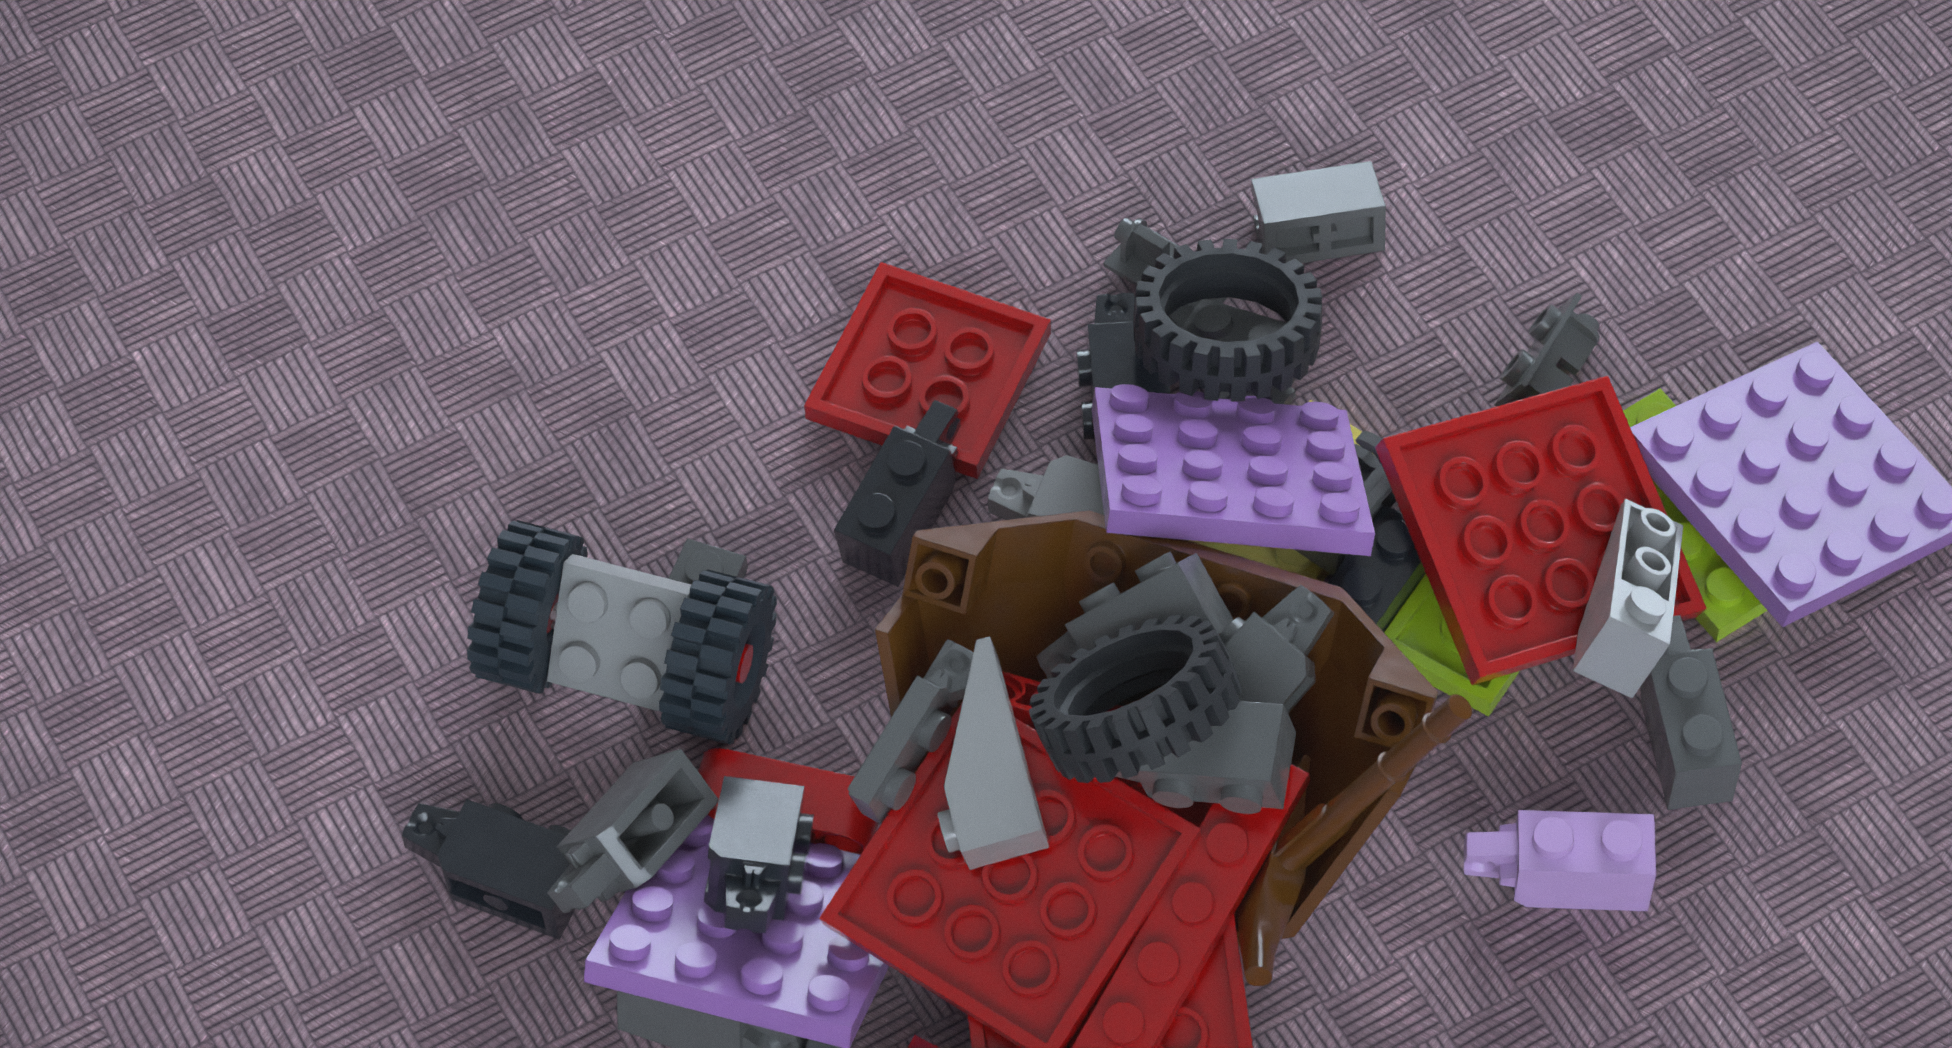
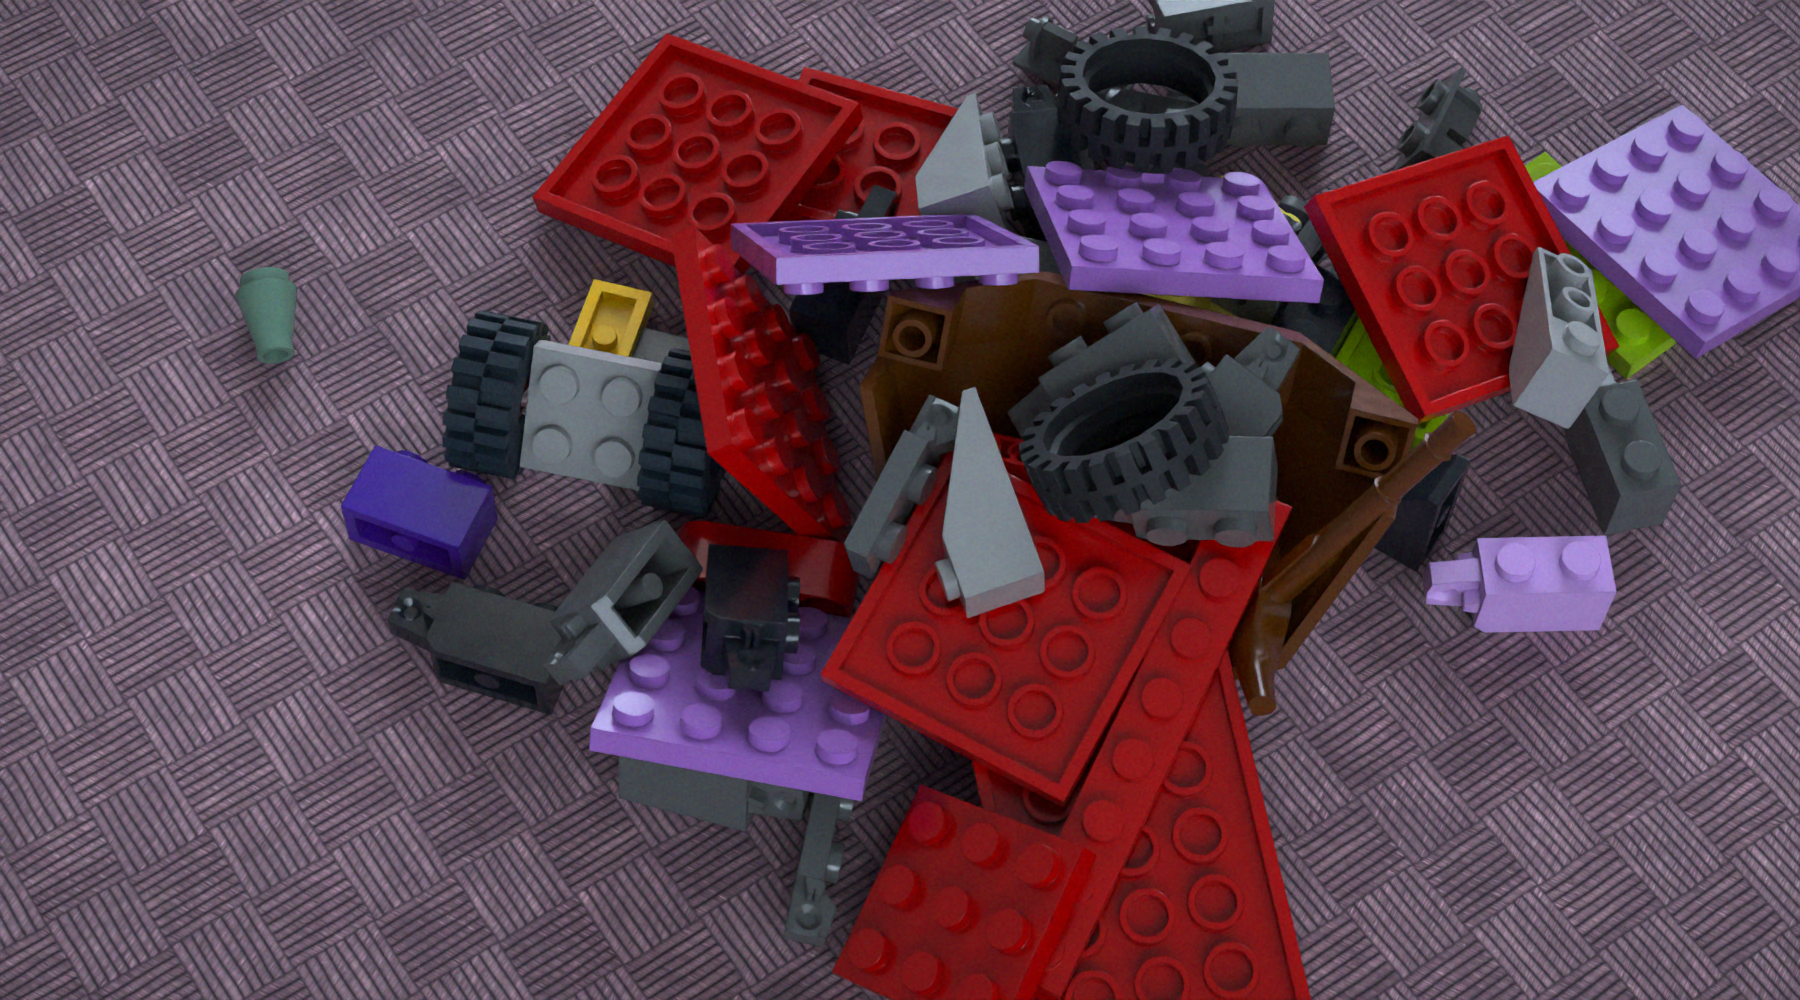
camera: 10 degrees left, 0 degrees up
(308, 504) = (269, 309): none -> sand green cone
(444, 722) = (420, 511): none -> dark purple brick
(654, 532) = (612, 318): none -> yellow plate
(759, 360) = (699, 147): none -> red plate
(787, 619) = (758, 391): none -> red plate
(921, 480) = (884, 249): none -> medium lavender plate
(1028, 399) = (966, 168): none -> light grey slope
(1374, 317) = (1280, 99): none -> dark grey hinge
(1462, 776) = (1424, 514): none -> black slope

